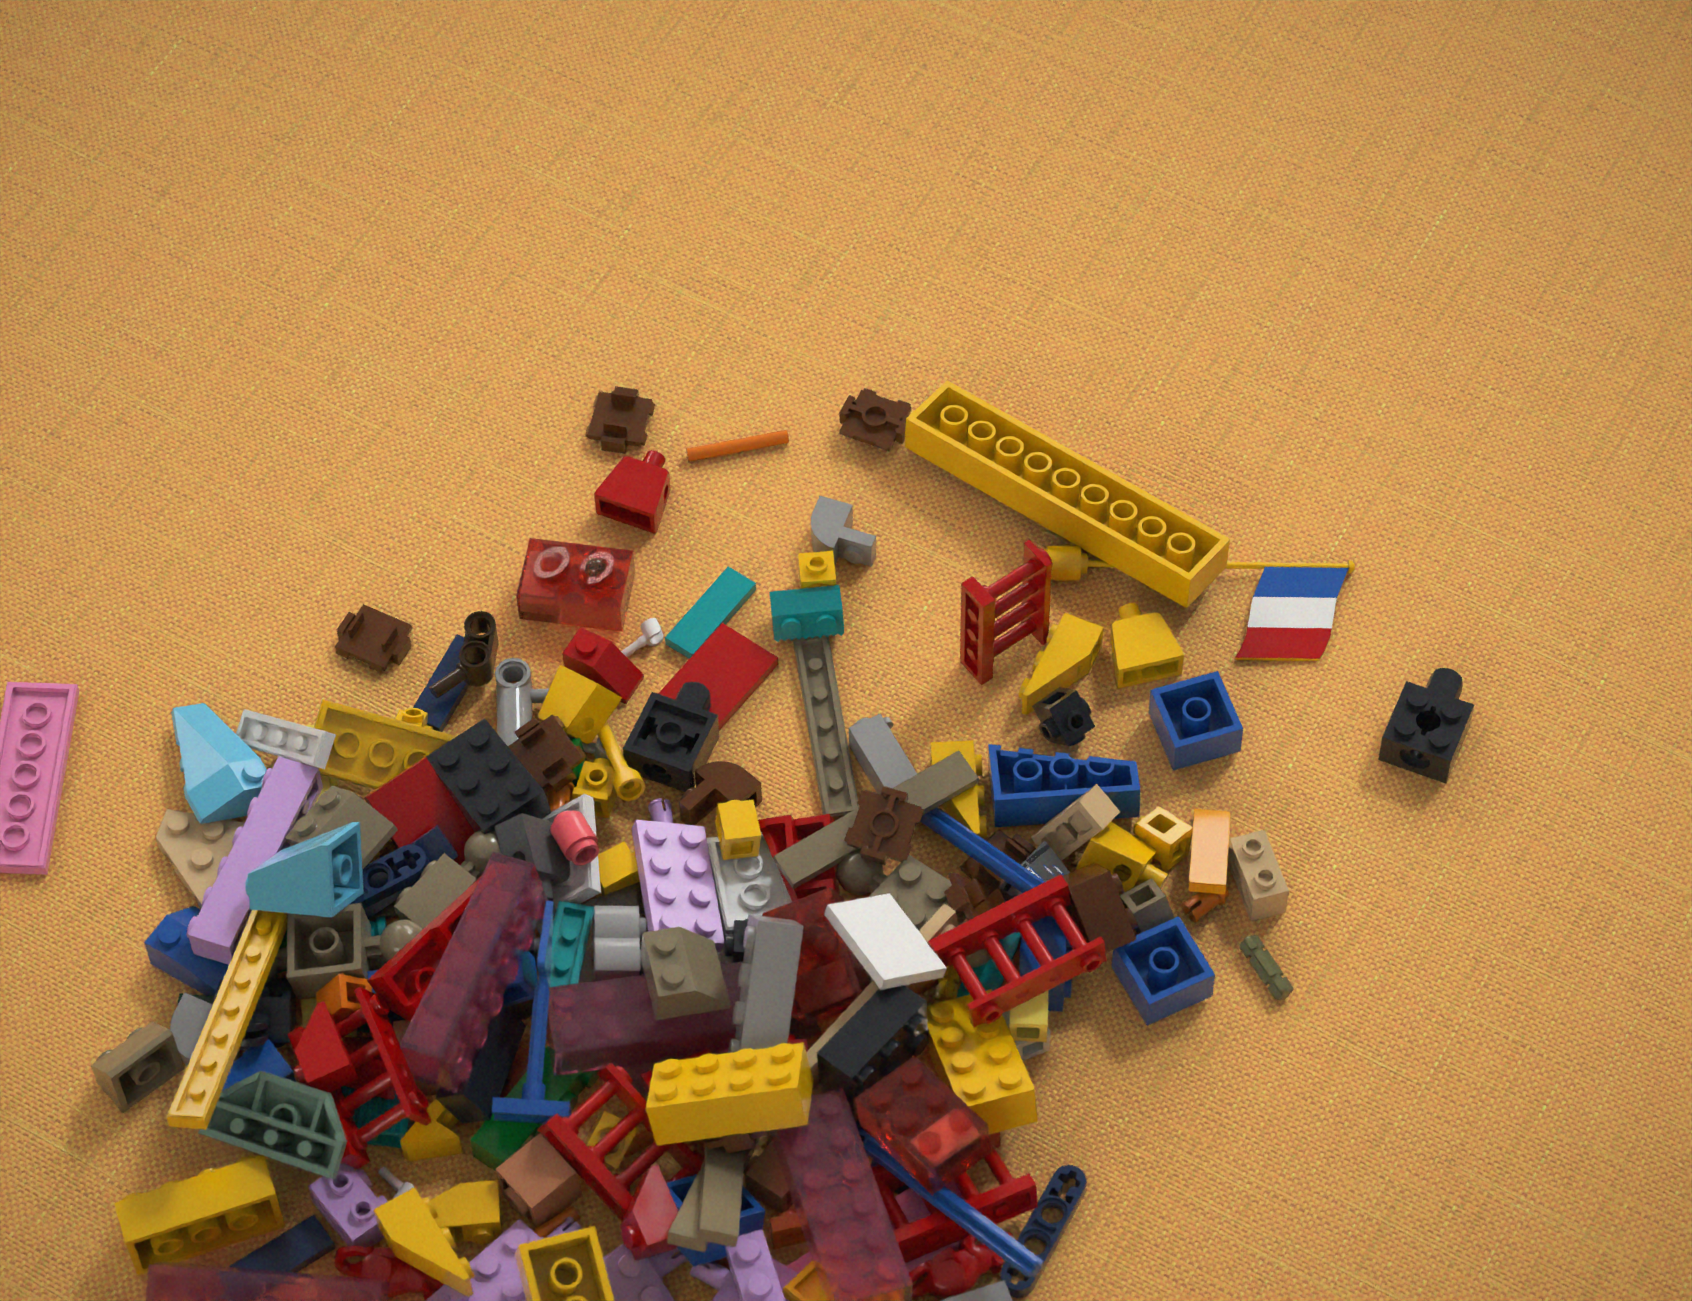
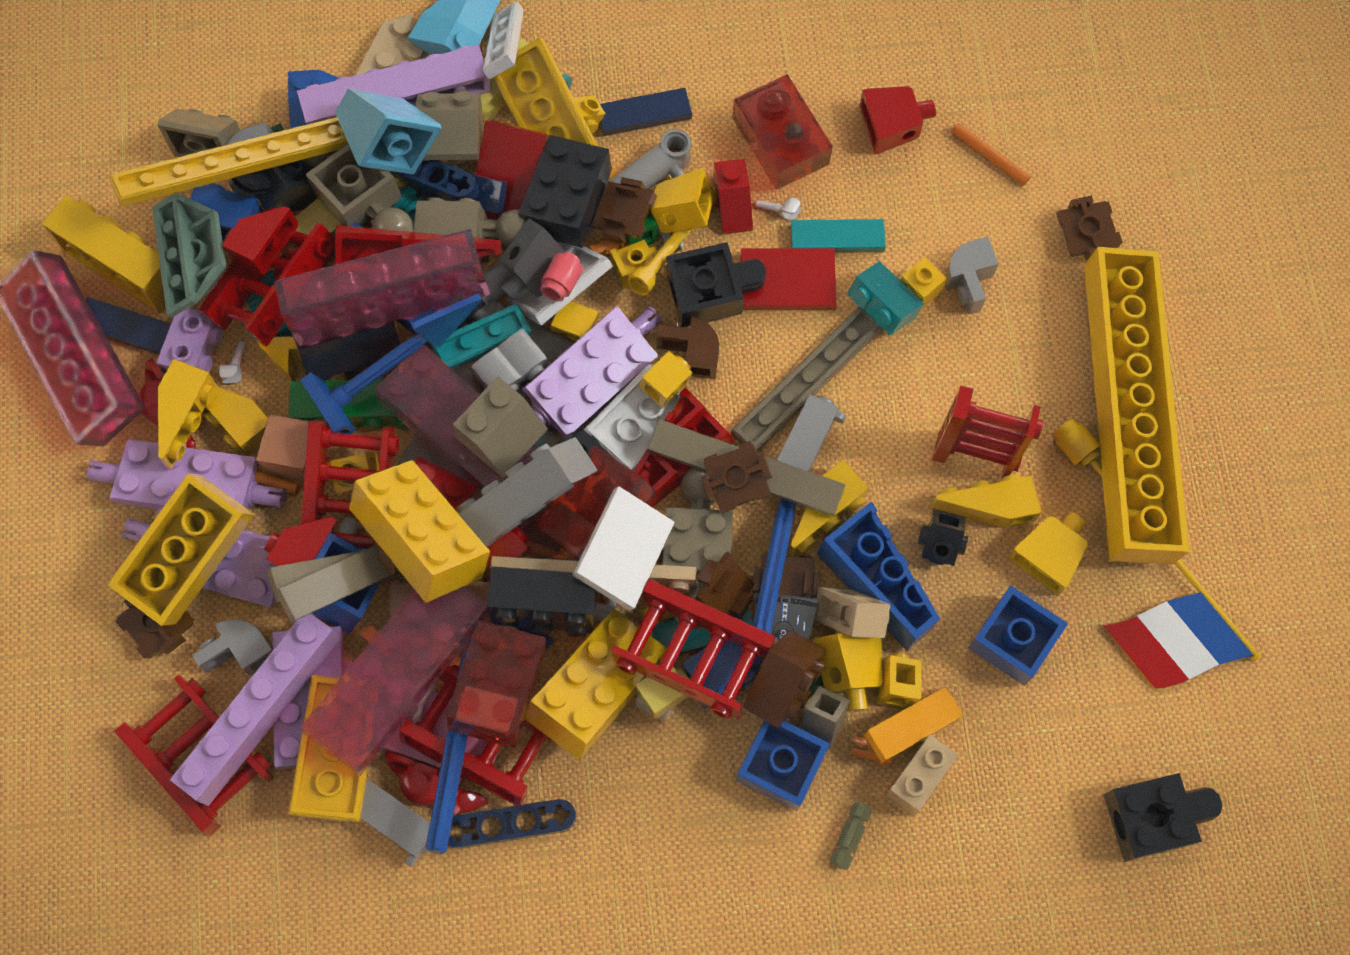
camera: 50 degrees right, 15 degrees up
(340, 995) = (322, 214): orange brick -> none
(373, 638) = (642, 40): reddish brown piece -> none
(474, 650) = (680, 110): dark brown beam -> none
(620, 419) = (945, 64): reddish brown piece -> none

